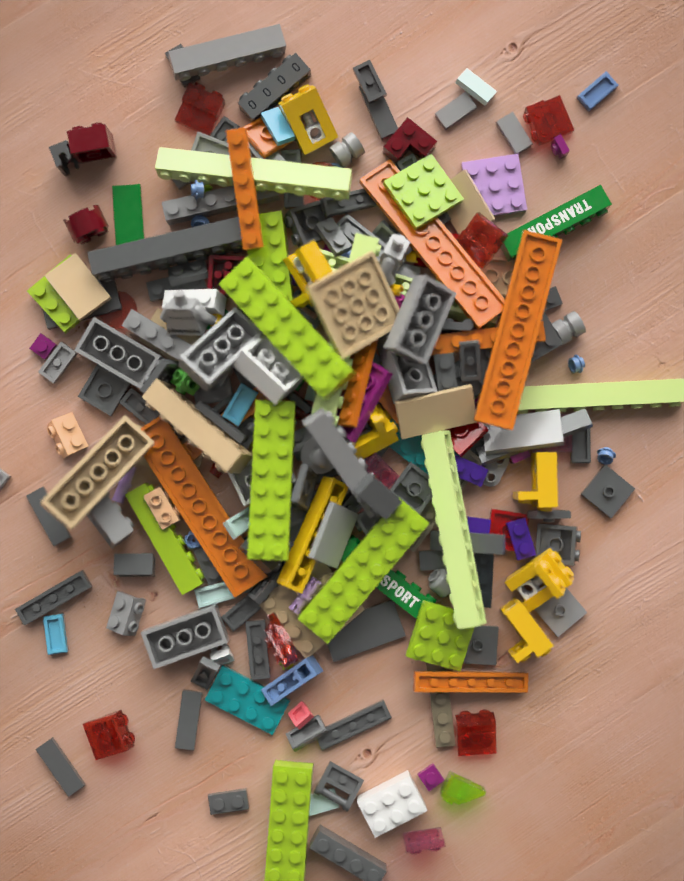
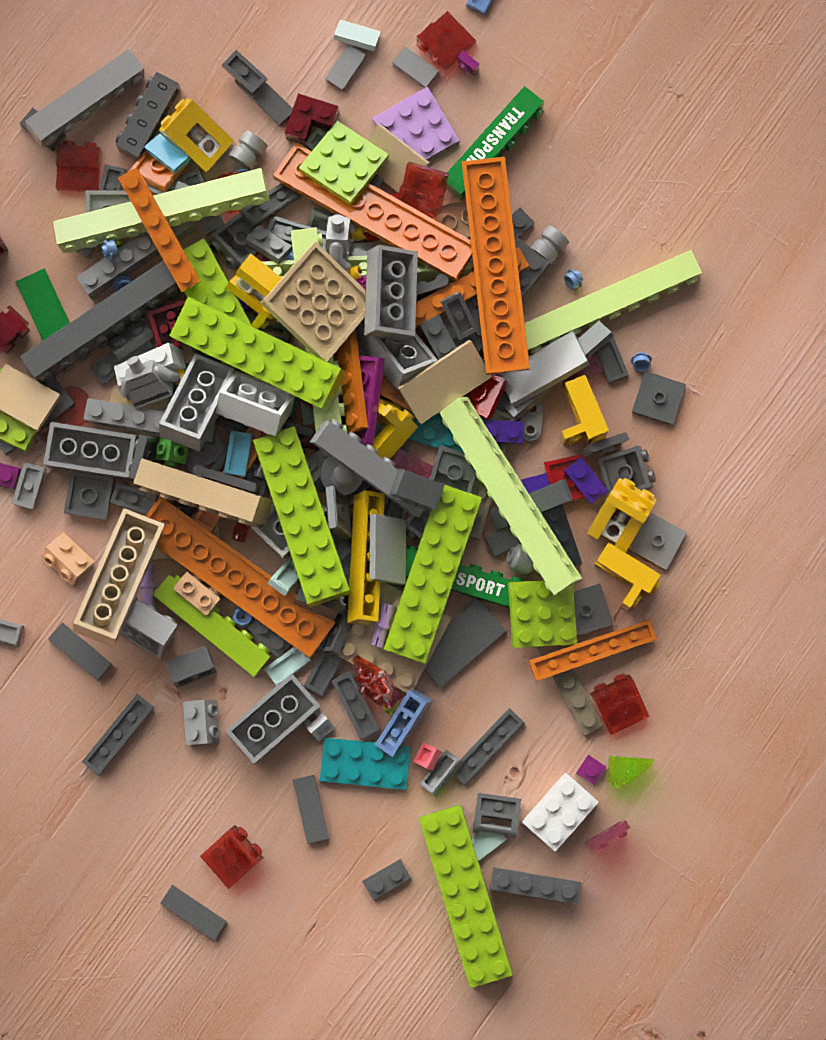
camera: 15 degrees left, 5 degrees down
(55, 634) = (134, 773): medium azure tile -> none
(205, 673) = (309, 749): dark grey plate -> none
(518, 457) = (551, 397): magenta plate -> none

